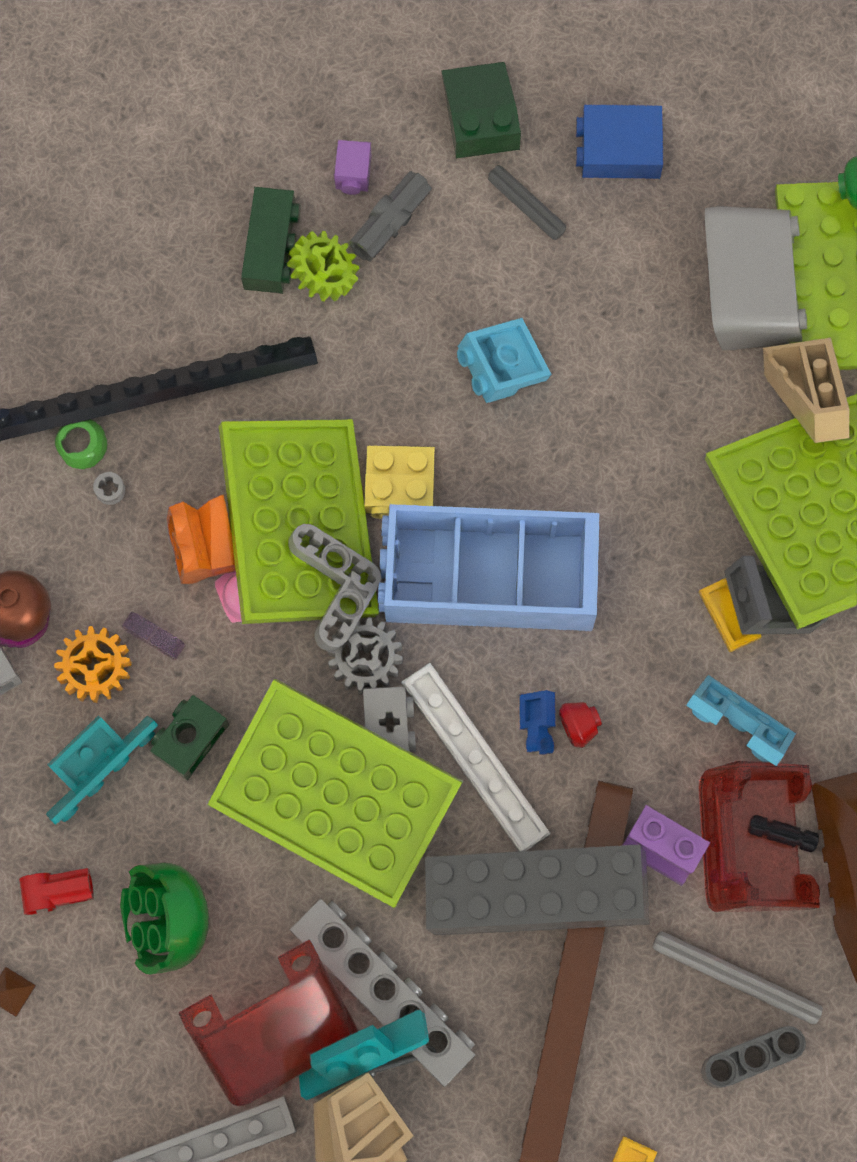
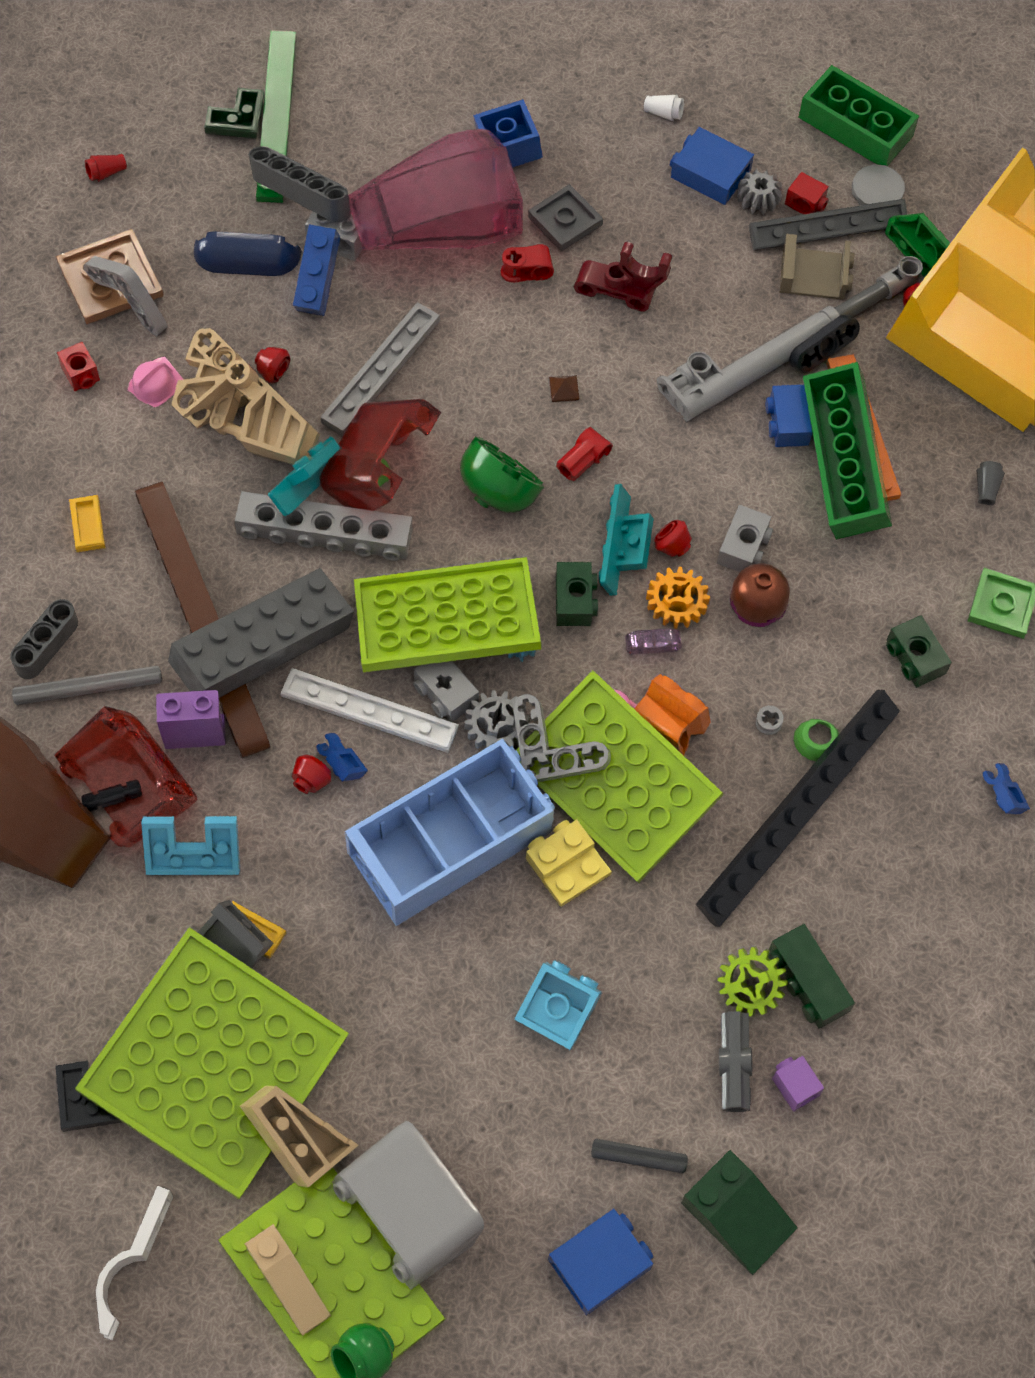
camera: 140 degrees right, 10 degrees down
(46, 729) = (673, 538): none -> red cone

